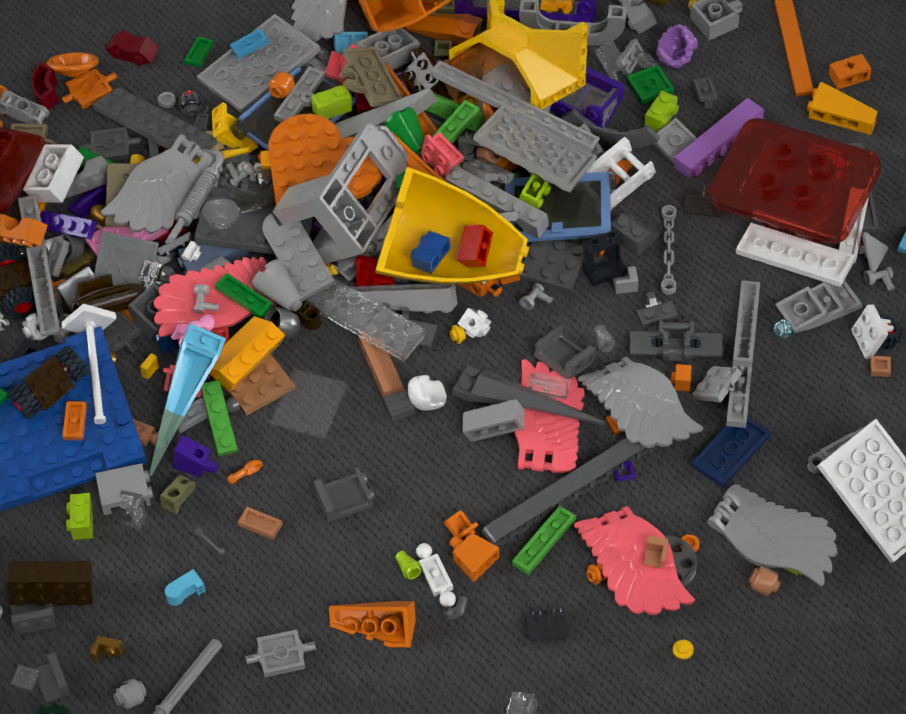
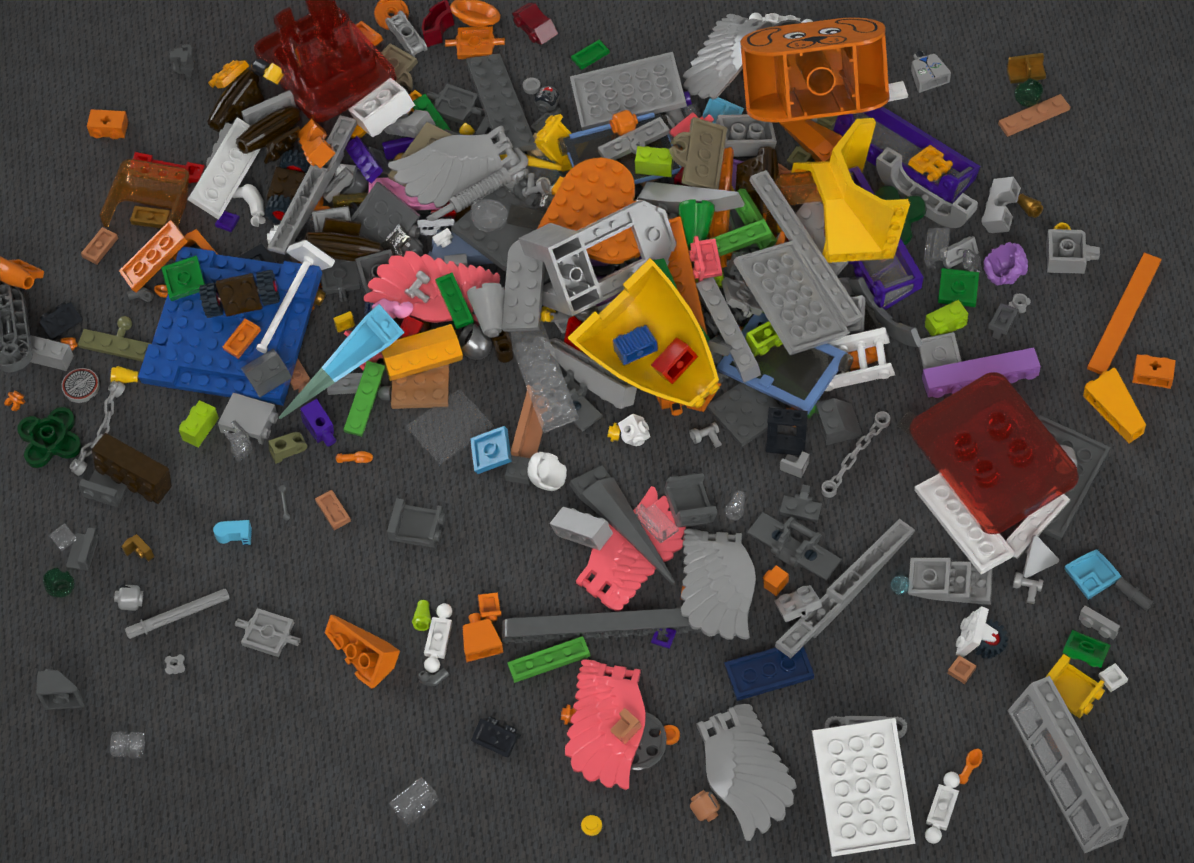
camera: 35 degrees right, 5 degrees up
(119, 436) = (266, 372): none -> dark grey slope
(249, 43) = (629, 69): dark azure plate -> none
(363, 401) = (491, 450): none -> dark azure plate
(706, 71) = (1022, 299): none -> light grey plate

